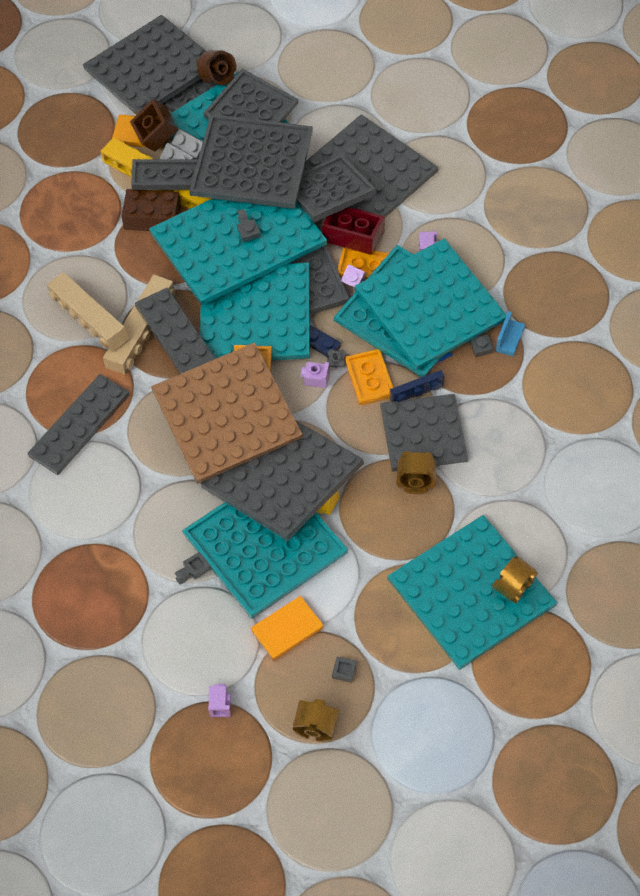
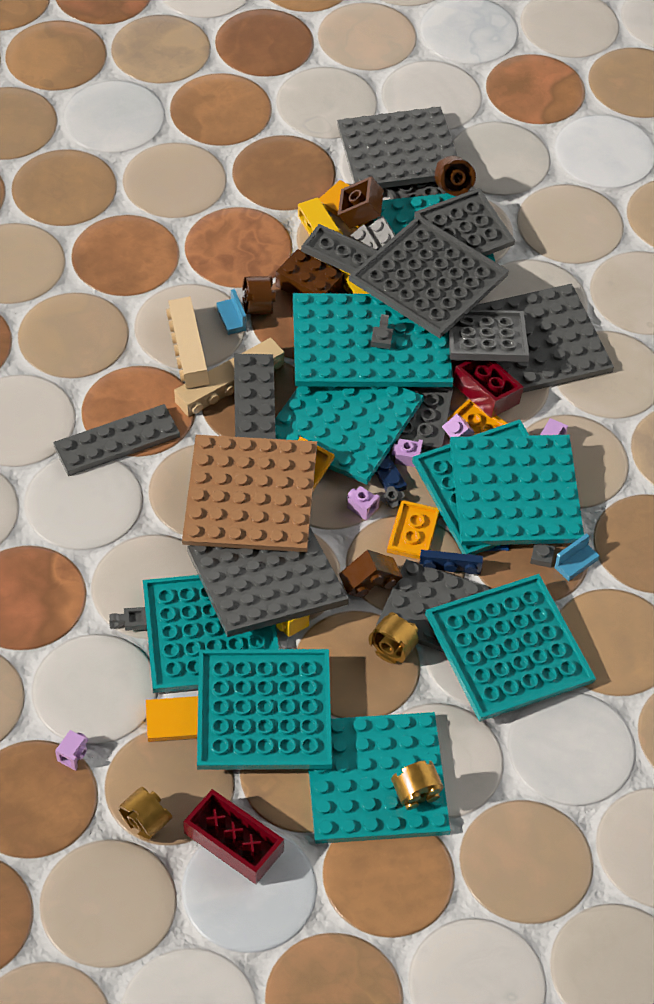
camera: 25 degrees right, 5 degrees down
(105, 269) = (232, 314): none -> dark azure panel
(118, 243) = (258, 295): none -> reddish brown brick
(324, 315) = (405, 451): none -> lavender brick
(344, 669) = (205, 782): dark grey plate -> none
(353, 584) = (264, 709): none -> teal plate
(361, 428) = (369, 571): none -> reddish brown brick
(397, 699) = (234, 836): none -> dark red brick
(507, 432) = (509, 647): none -> teal plate

